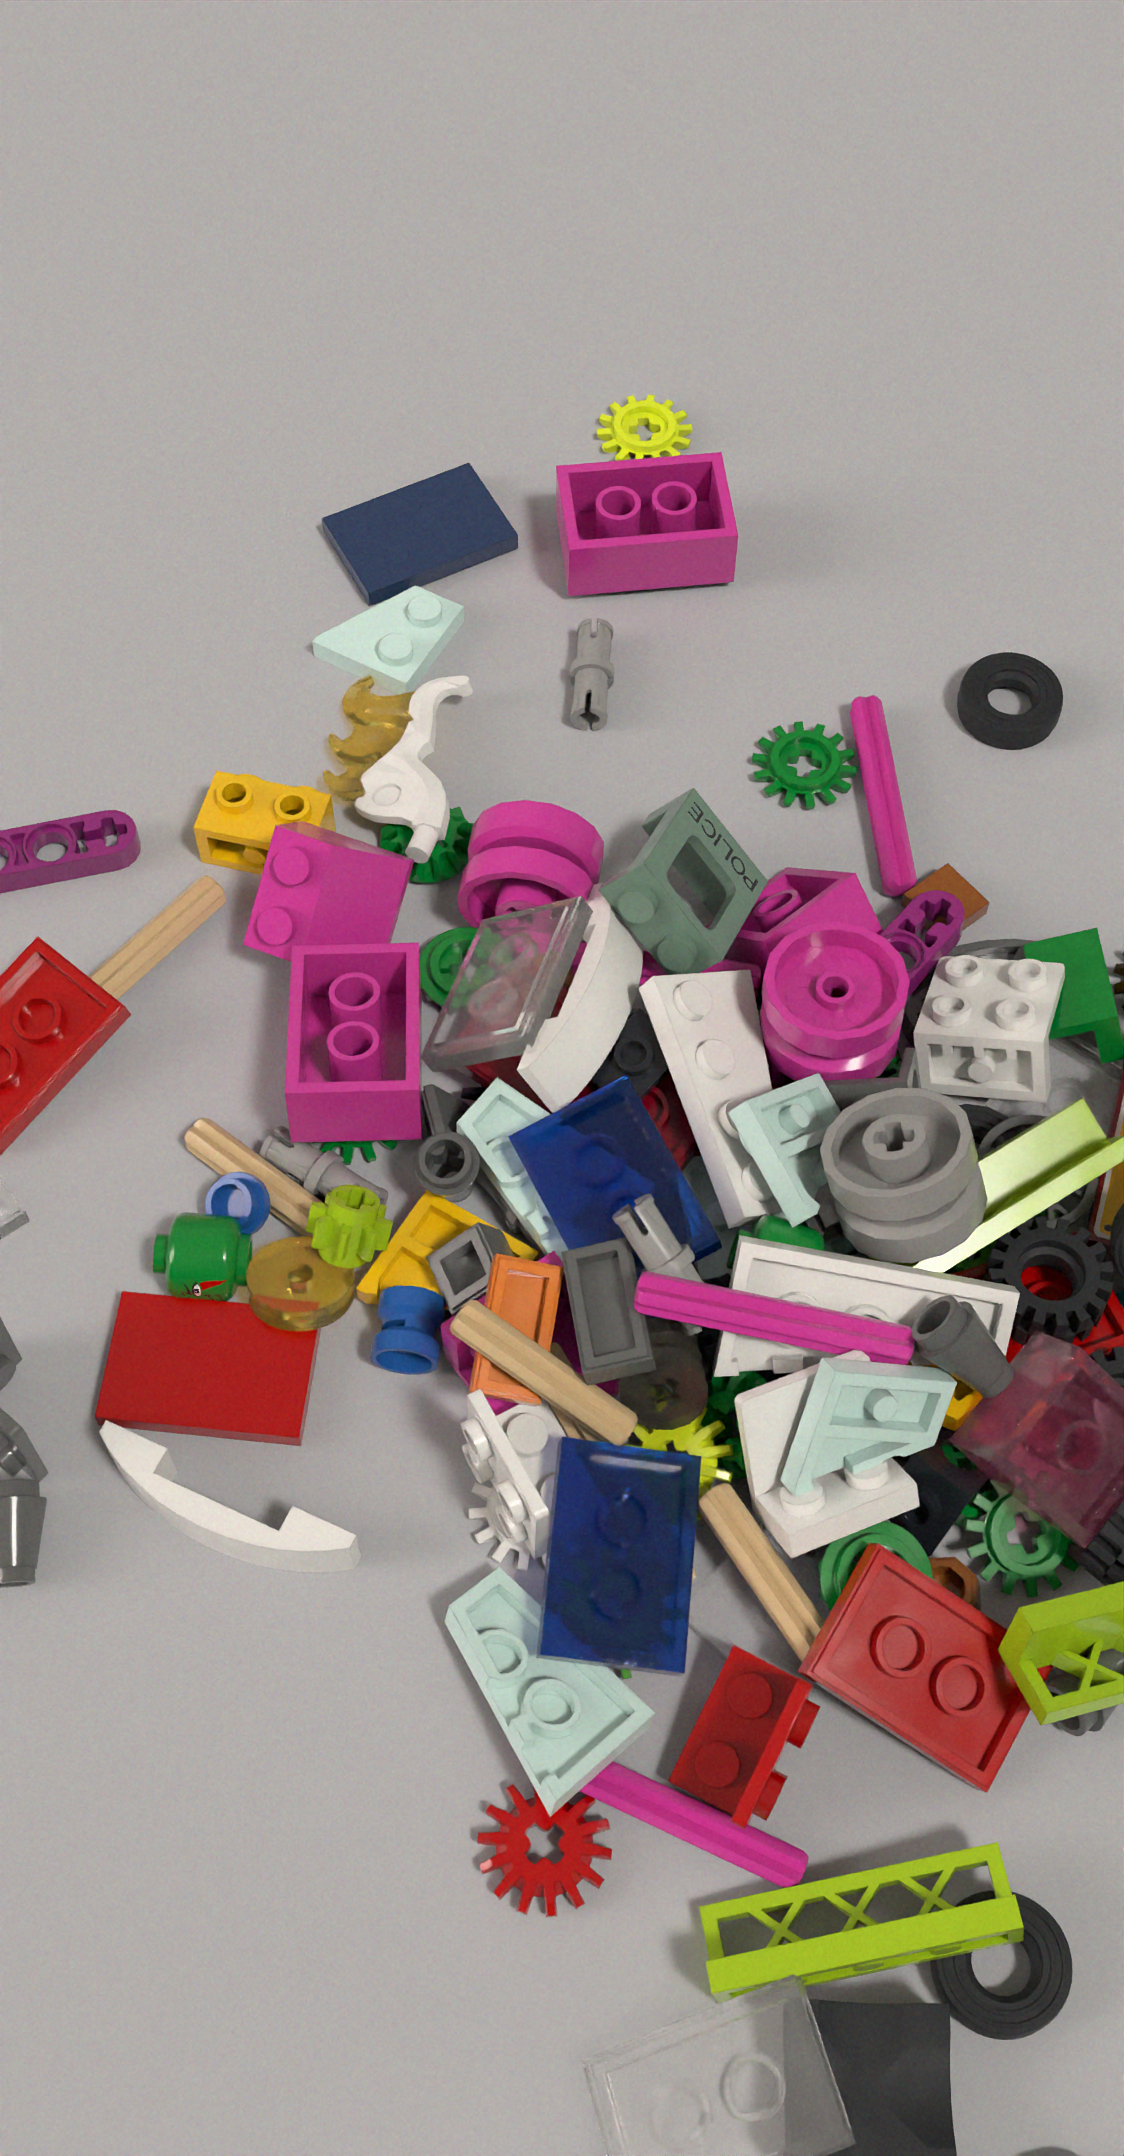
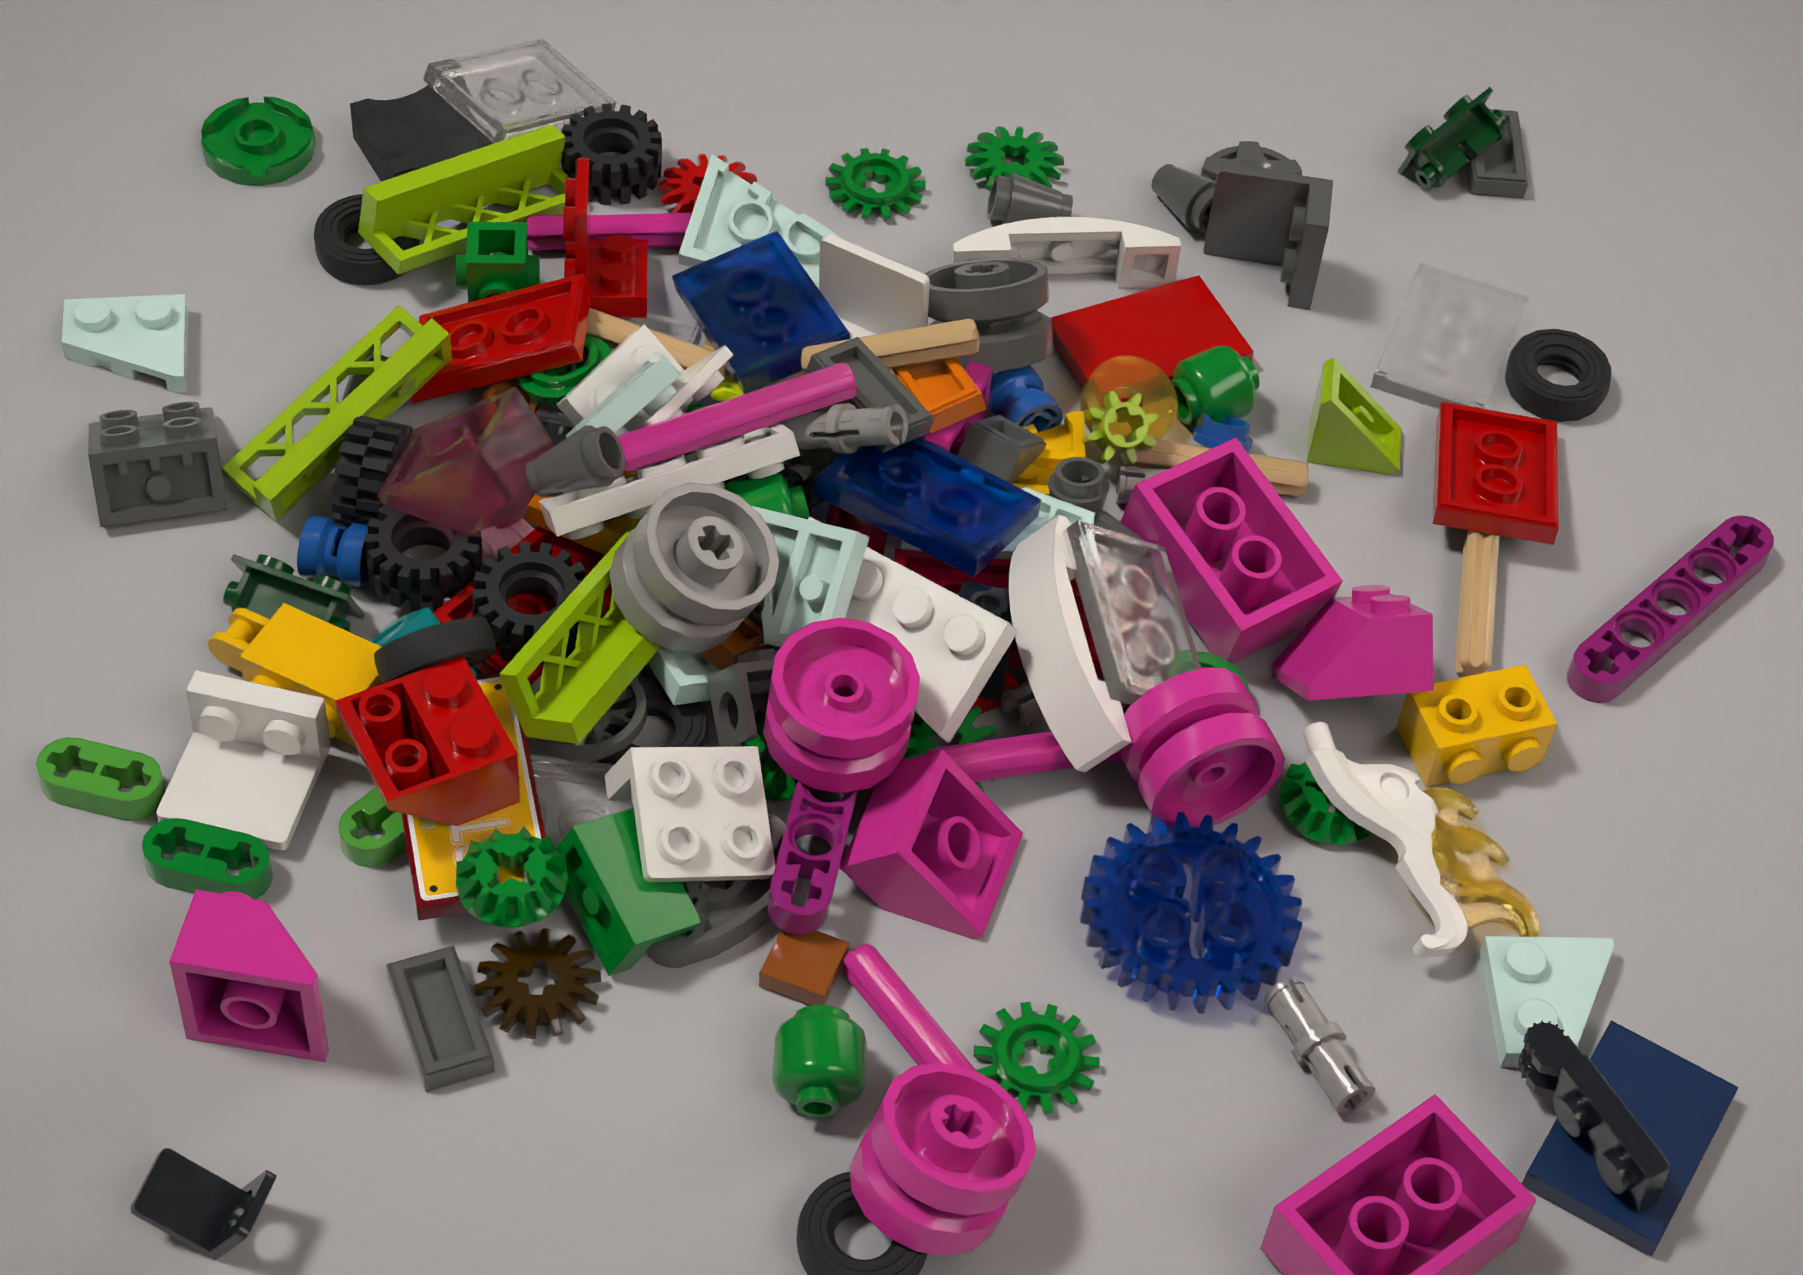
camera: 145 degrees right, 10 degrees down
(112, 1155) = (1351, 426): none -> lime slope
(180, 1722) = (990, 156): none -> green gear
(201, 1615) = (1021, 199): none -> dark grey cone
(321, 1736) = (851, 181): none -> green gear
(355, 1439) = (1003, 302): none -> dark grey wheel
(456, 523) = (1592, 1110): none -> black hinge
(594, 768) = (1249, 908): none -> clear blue gear
(673, 1921) = (620, 133): none -> black tyre
(710, 863) = (1058, 830): sand green window -> none
(898, 1767) = (496, 260): none -> green brick
(942, 680) = (942, 1159): none -> dark pink wheel
(983, 806) = (819, 1060): none -> green head

